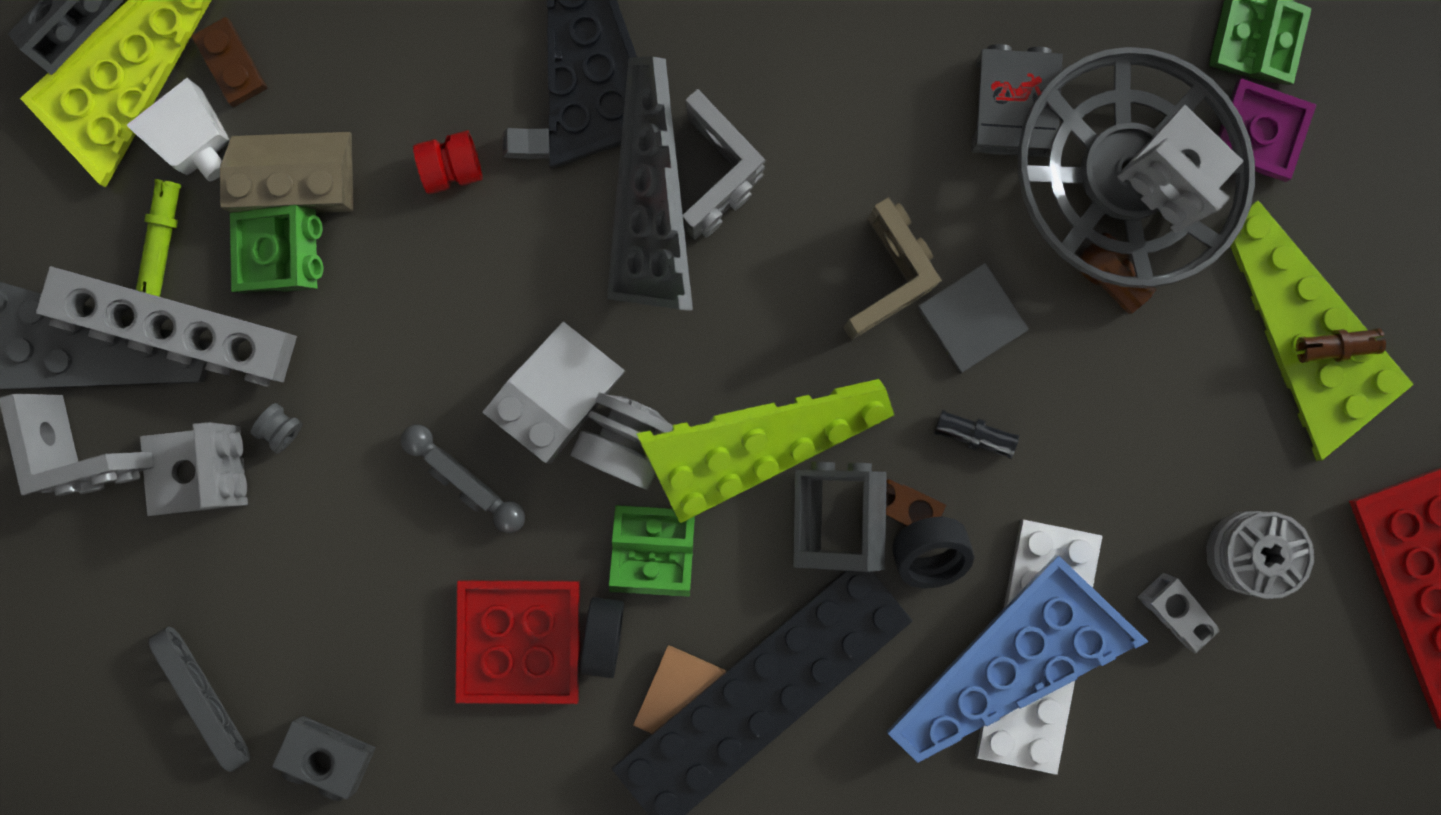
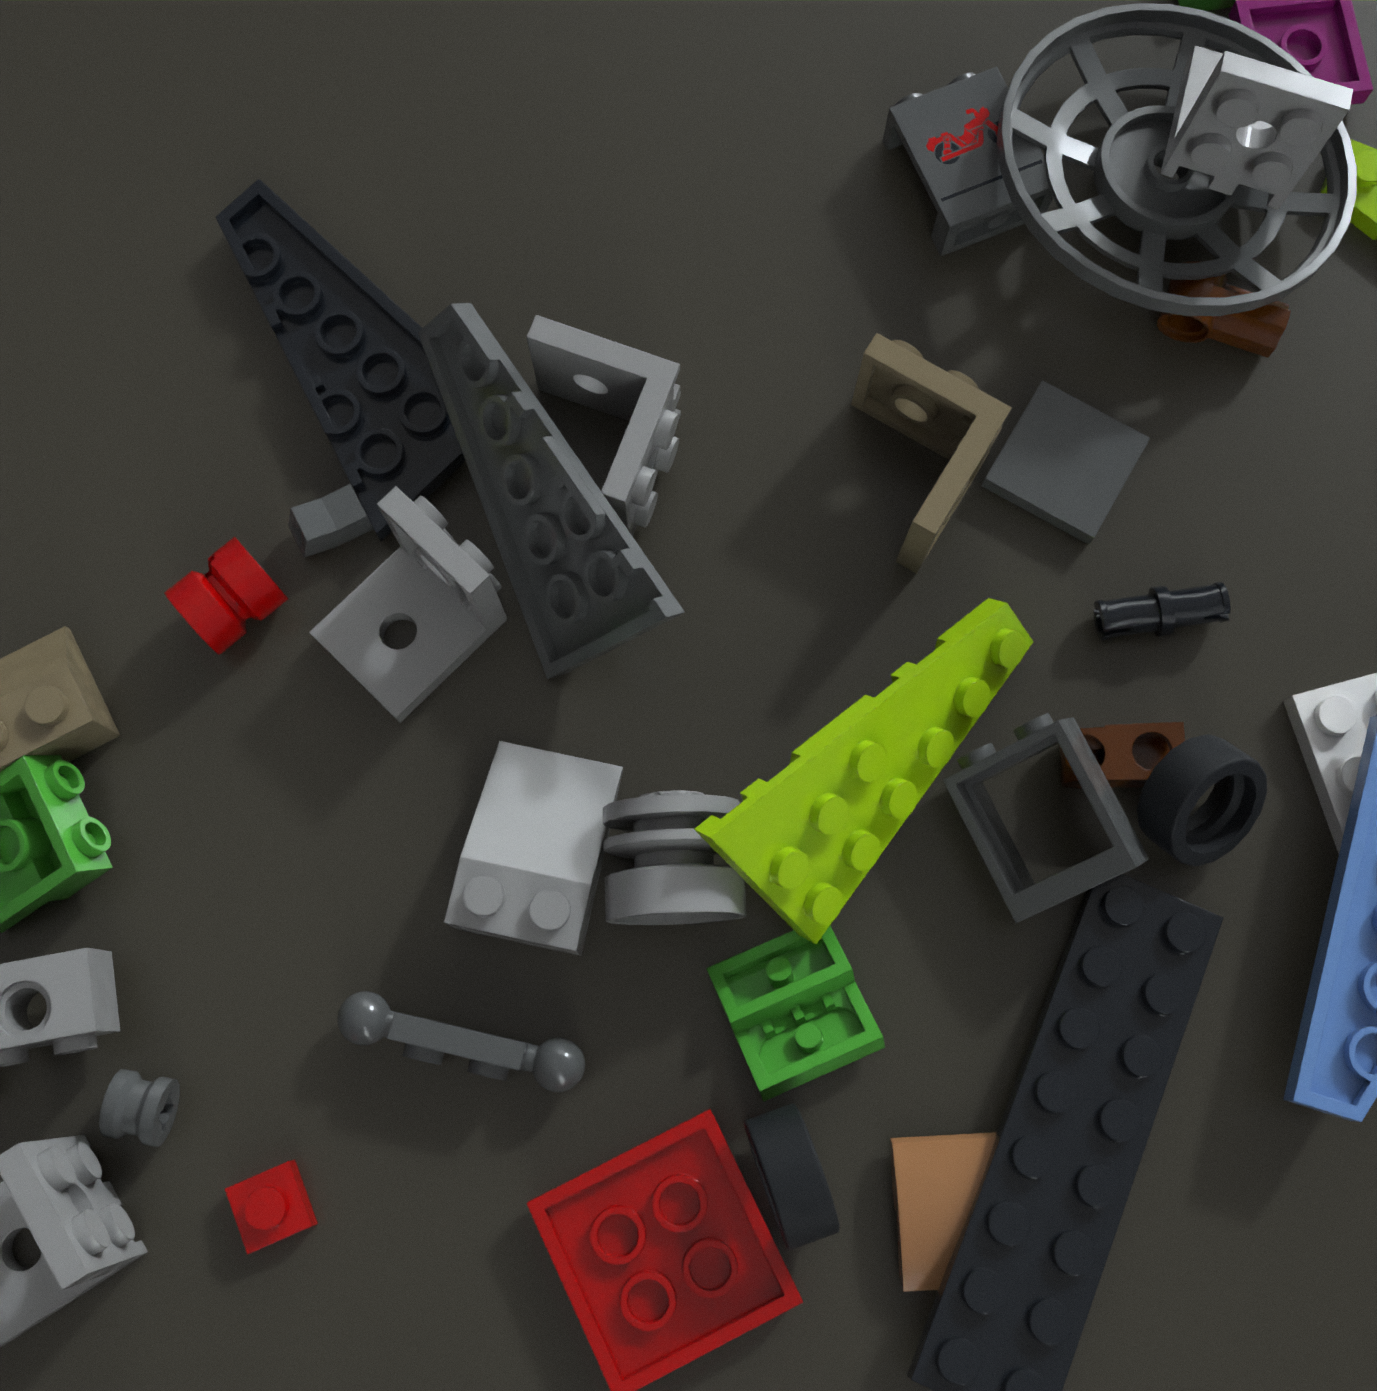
camera: 30 degrees left, 10 degrees down
(322, 514) = (271, 1206): none -> red plate
(562, 207) = (424, 581): none -> light grey bracket

